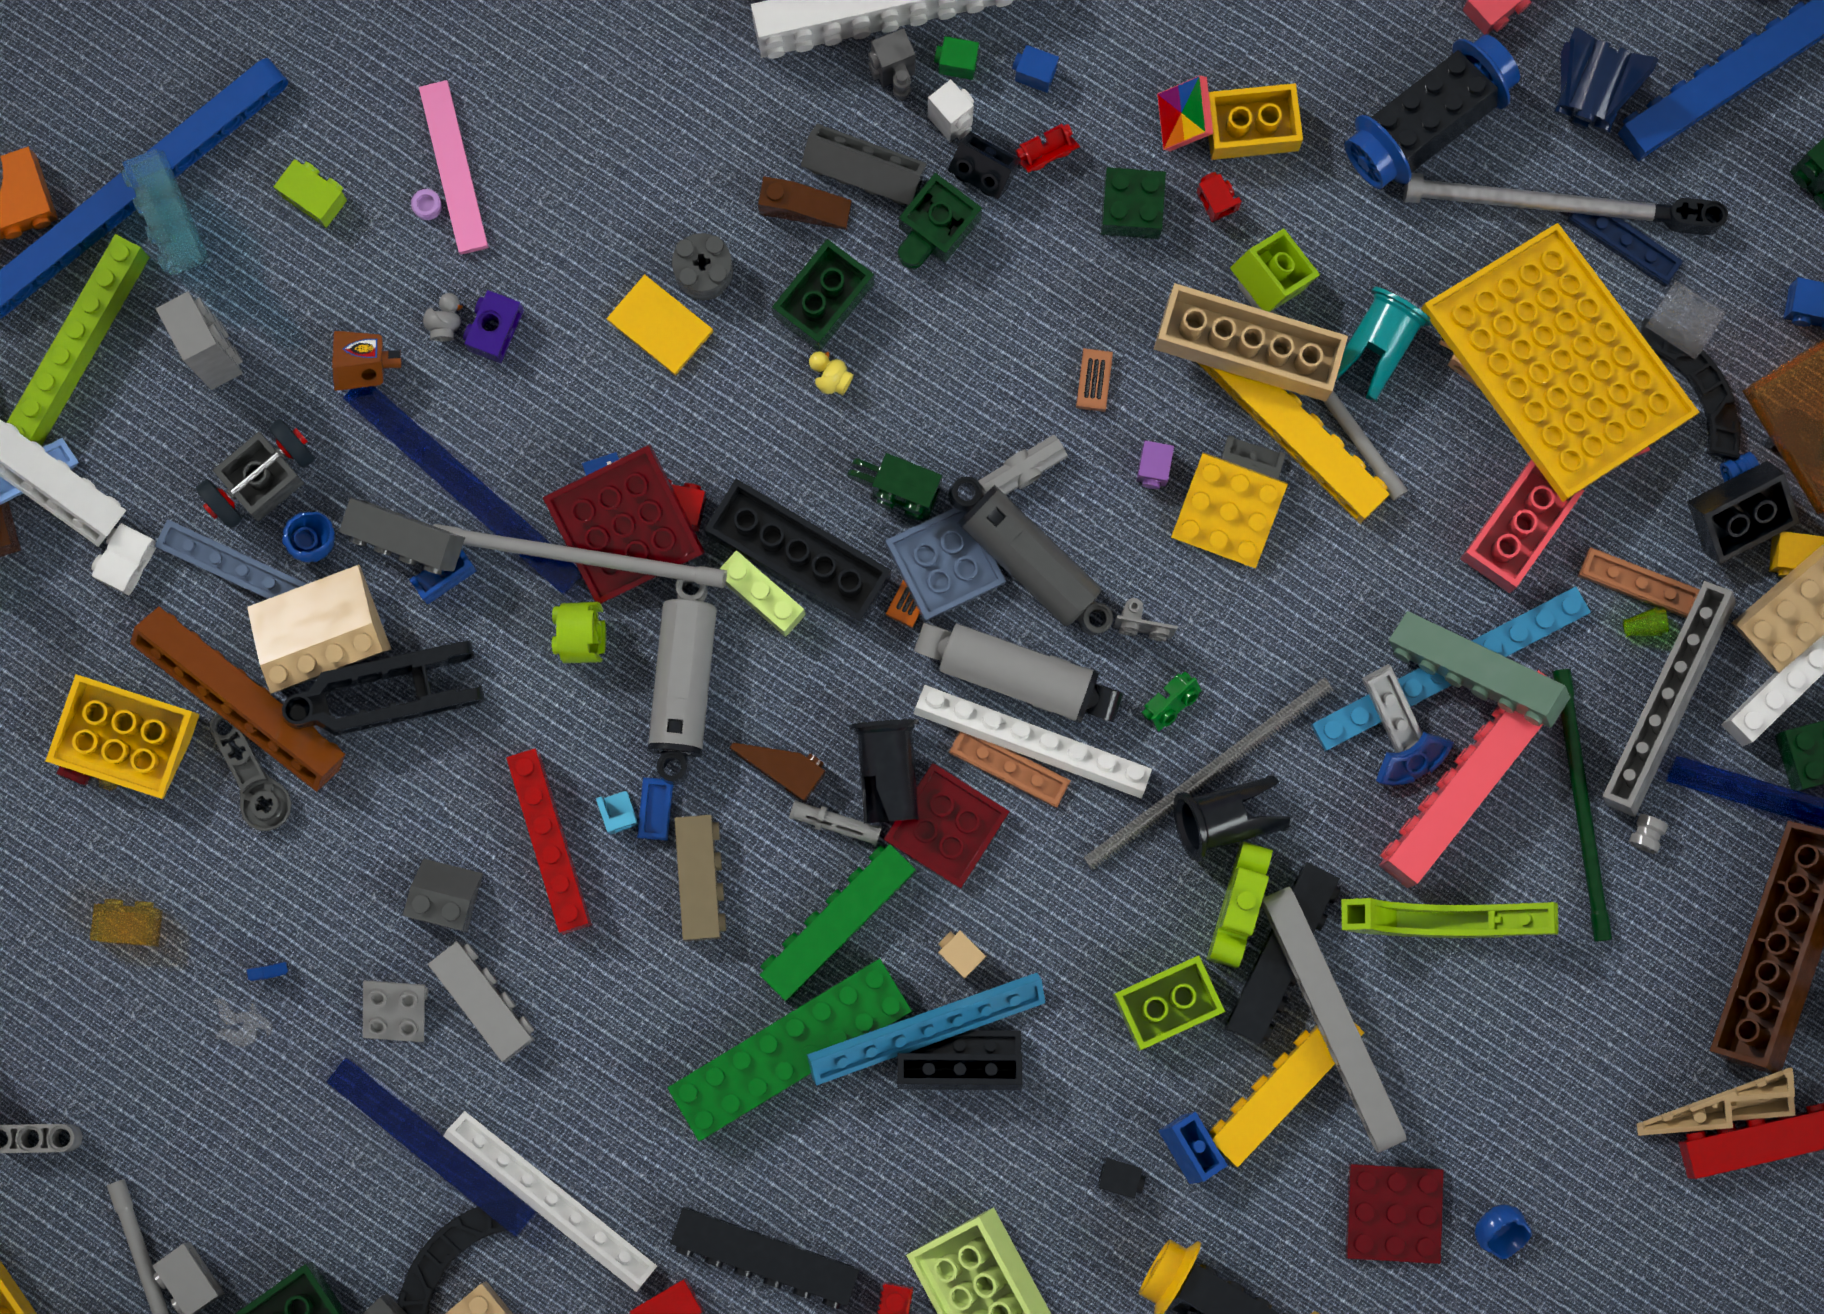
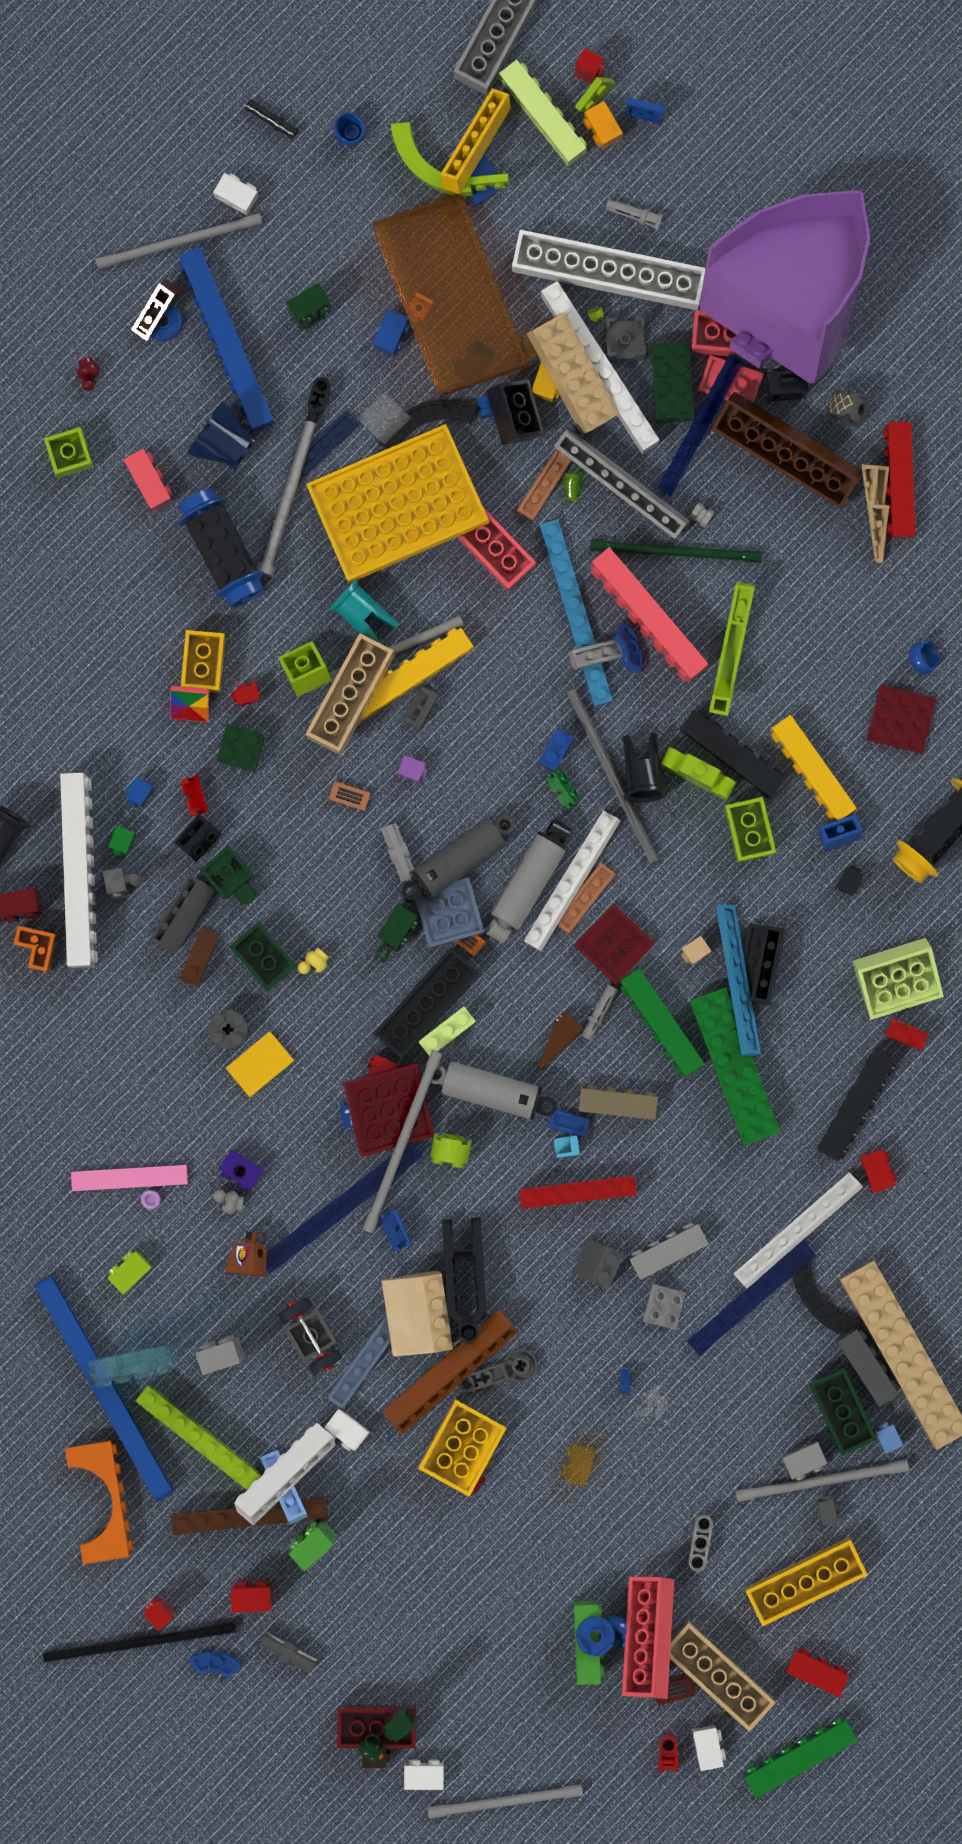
camera: 75 degrees left, 5 degrees up
(308, 536) = (355, 1309): blue hair -> none
(402, 535) = (368, 1249): dark grey brick -> none
(887, 770) = (574, 973): black piece -> none
(951, 111) = (159, 851): white brick -> none
(1130, 623) = (510, 804): light grey hinge -> none
(1229, 510) = (451, 729): yellow plate -> none
(1230, 676) = (555, 750): none -> blue brick
(1333, 1020) = (779, 732): light grey beam -> none
(1479, 669) = (583, 598): sand green brick -> none

